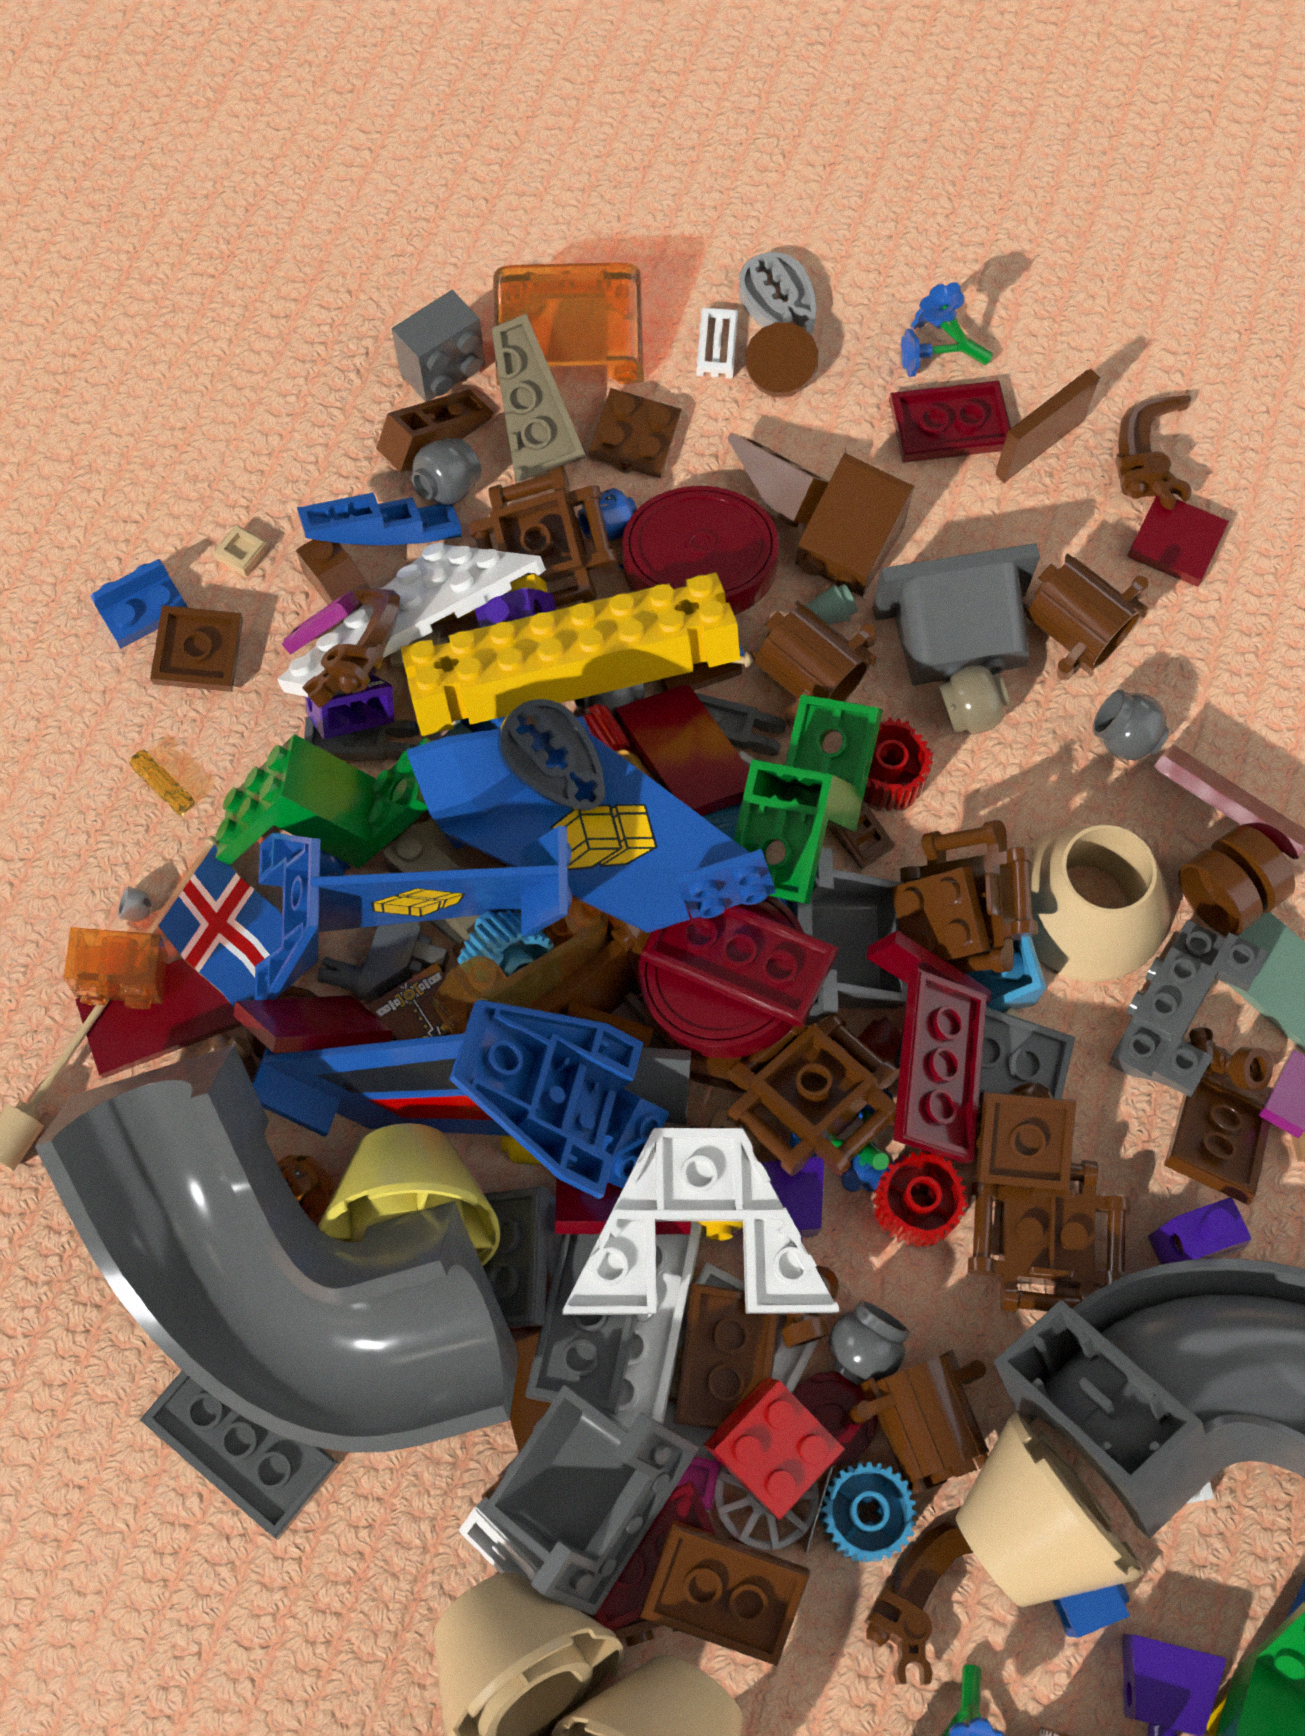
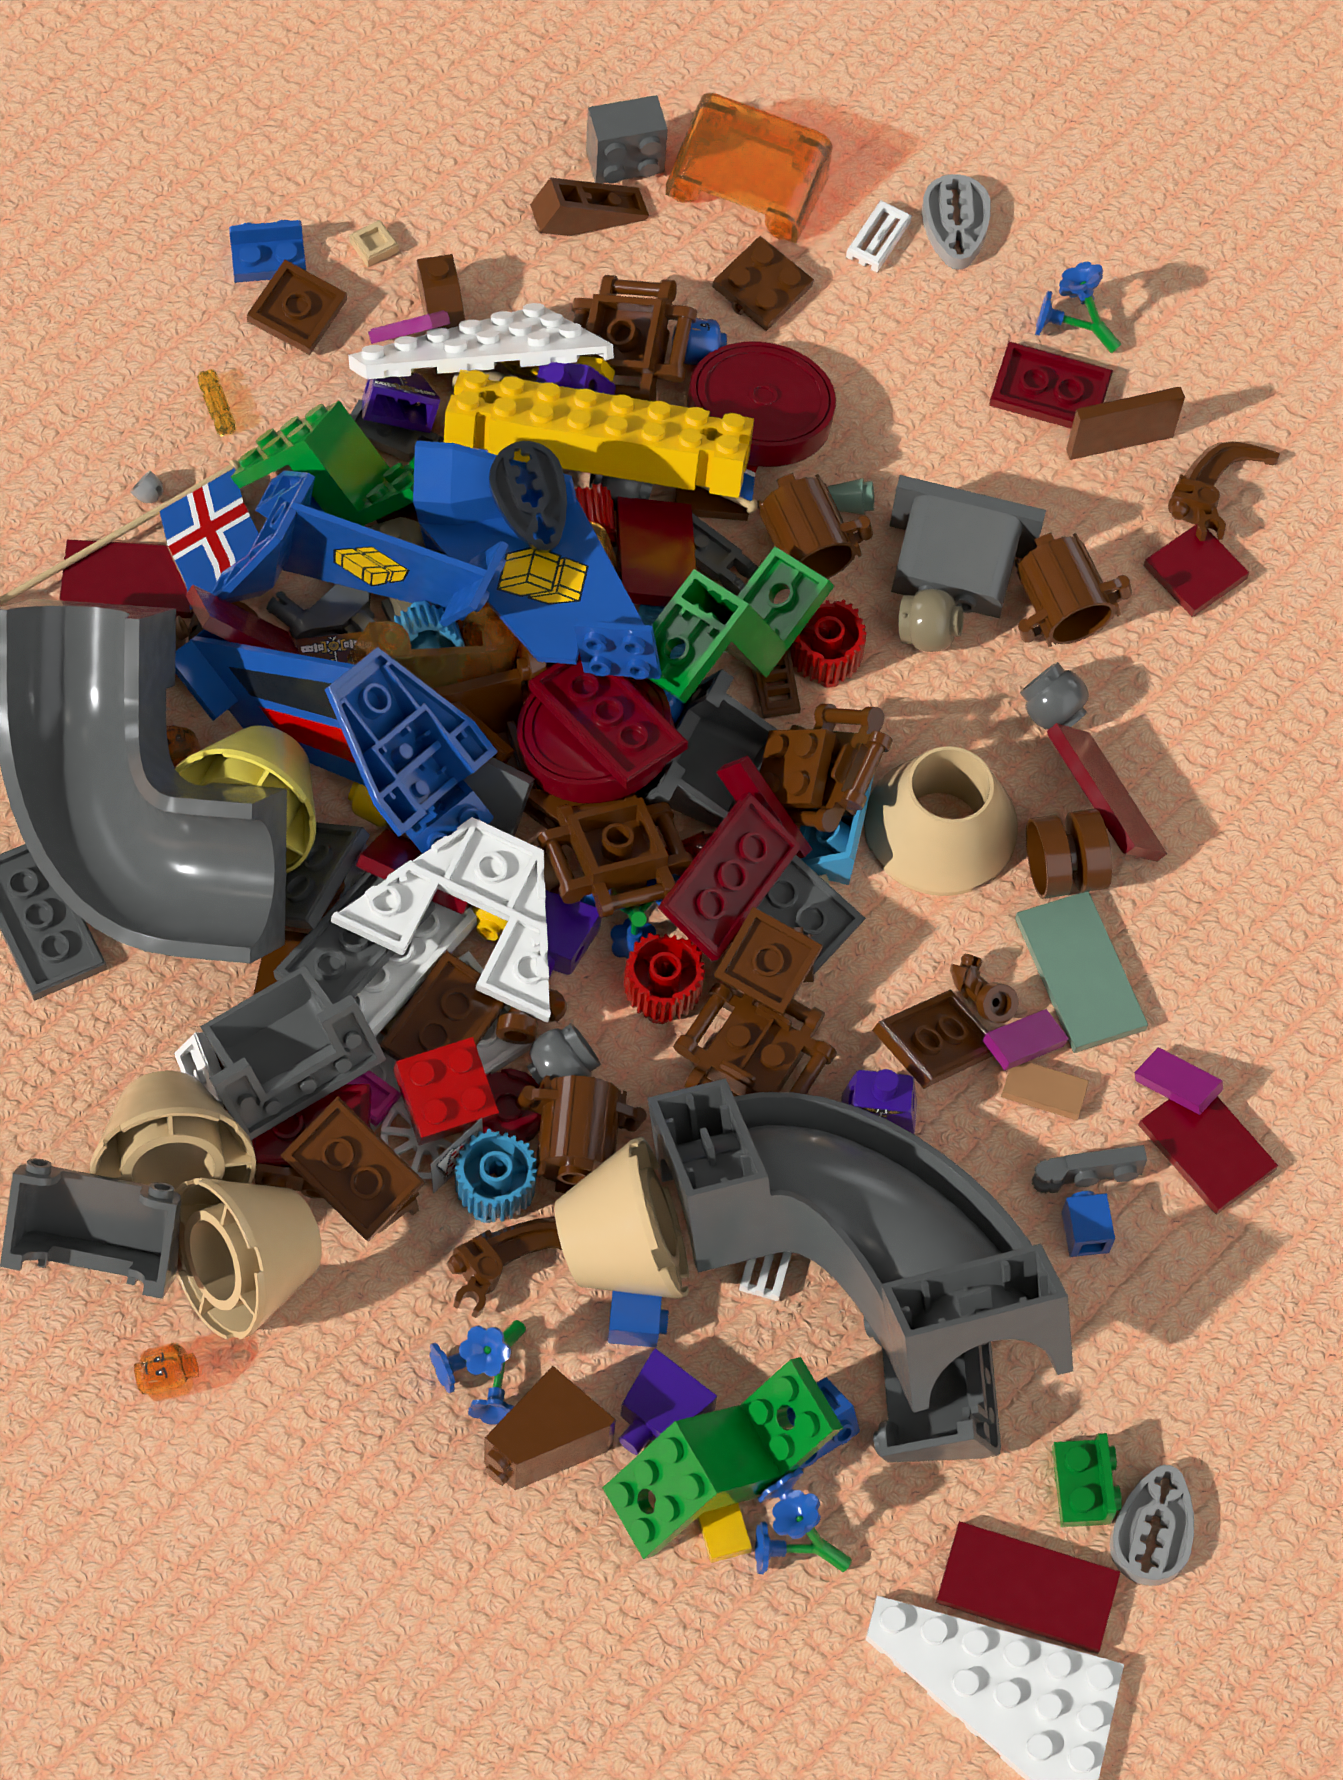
camera: 20 degrees right, 5 degrees down
(116, 967) = (112, 522): clear orange brick -> none
(349, 664) = (411, 365): reddish brown piece -> none
(368, 523) = (510, 271): blue slope -> none
(445, 471) = (578, 247): dark grey piece -> none
(534, 411) = (681, 220): dark tan wing -> none
(780, 481) = (865, 375): slope -> none
(781, 359) = (925, 273): reddish brown tile -> none
(854, 525) = (907, 435): reddish brown slope -> none
(1179, 983) = (966, 925): dark grey bracket -> none

